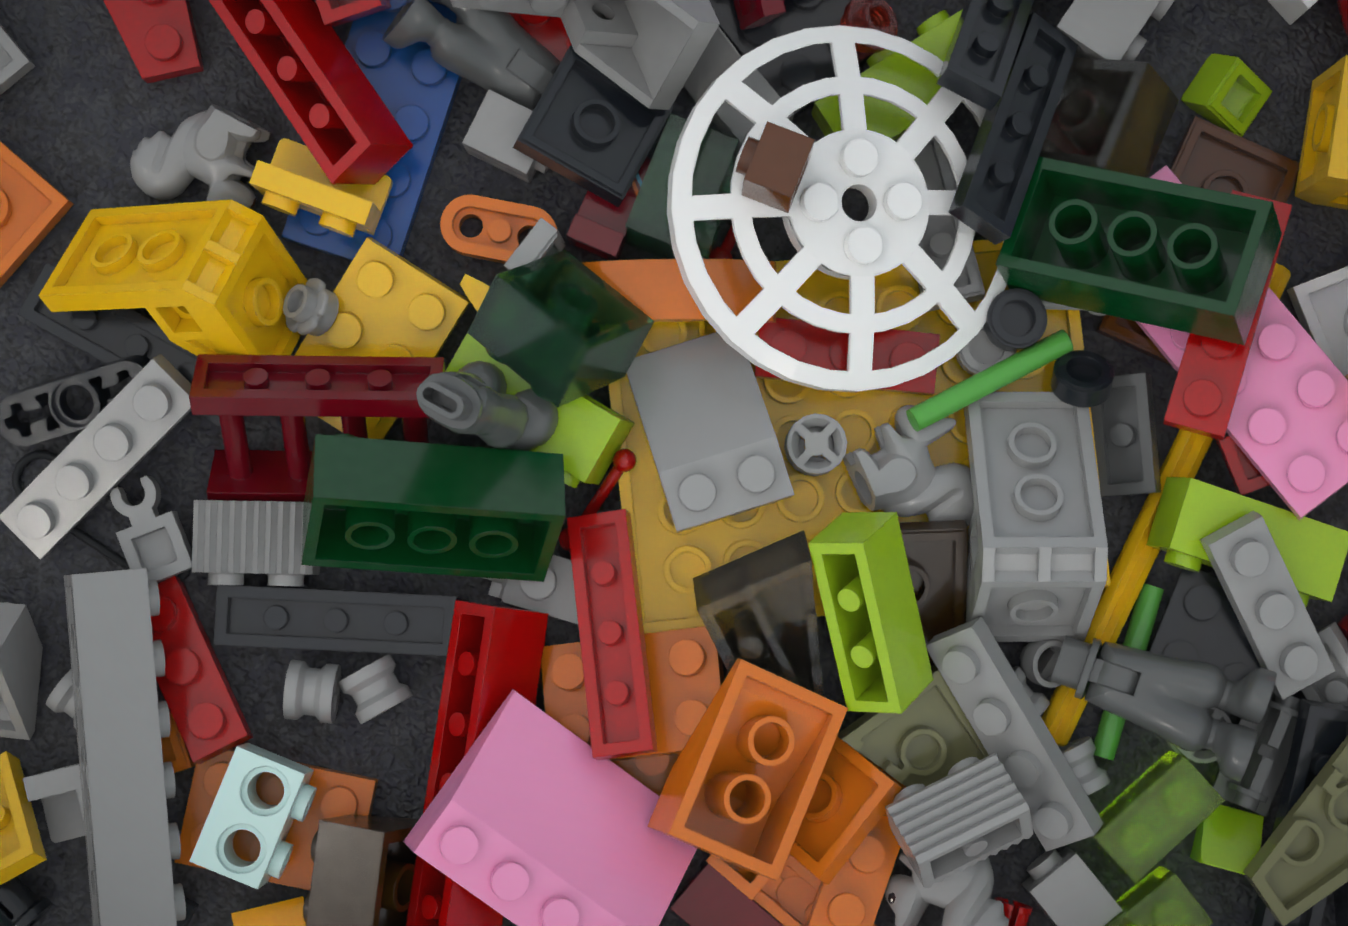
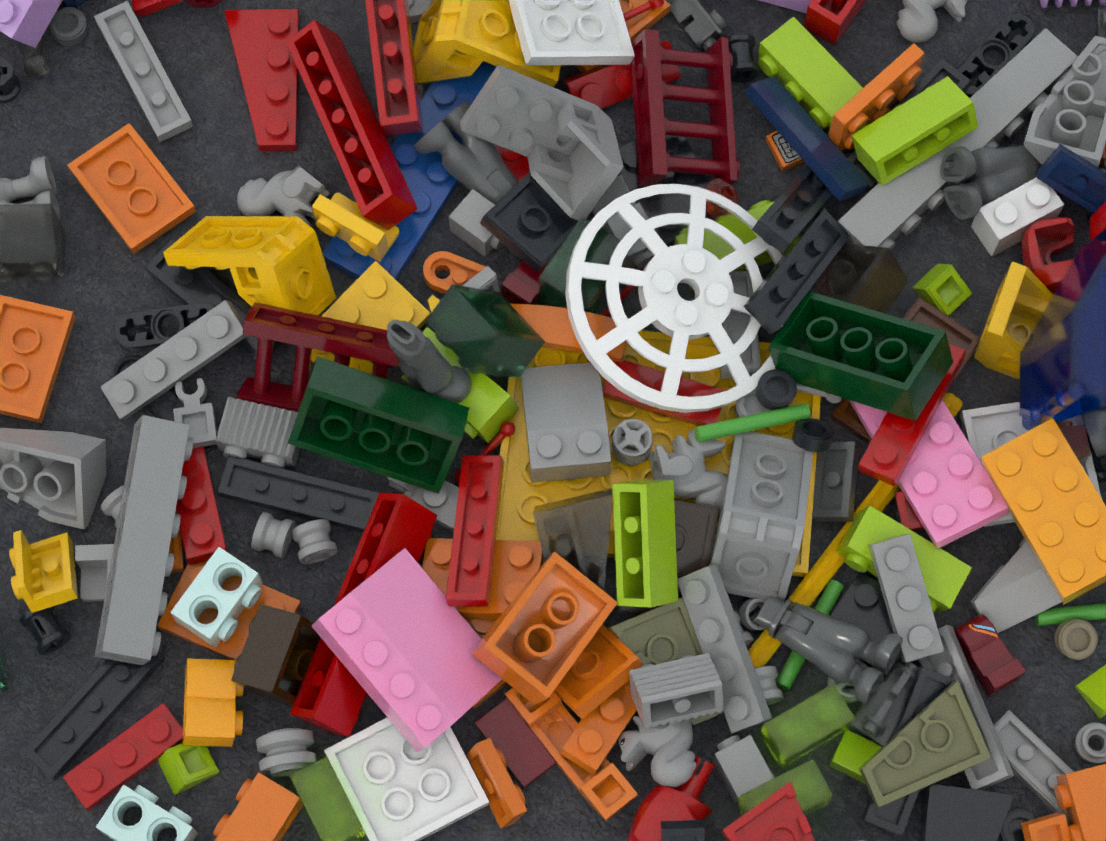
camera: 15 degrees right, 15 degrees down
(310, 308) = (330, 295): light grey plate -> none
(774, 166) = (639, 250): reddish brown plate -> none

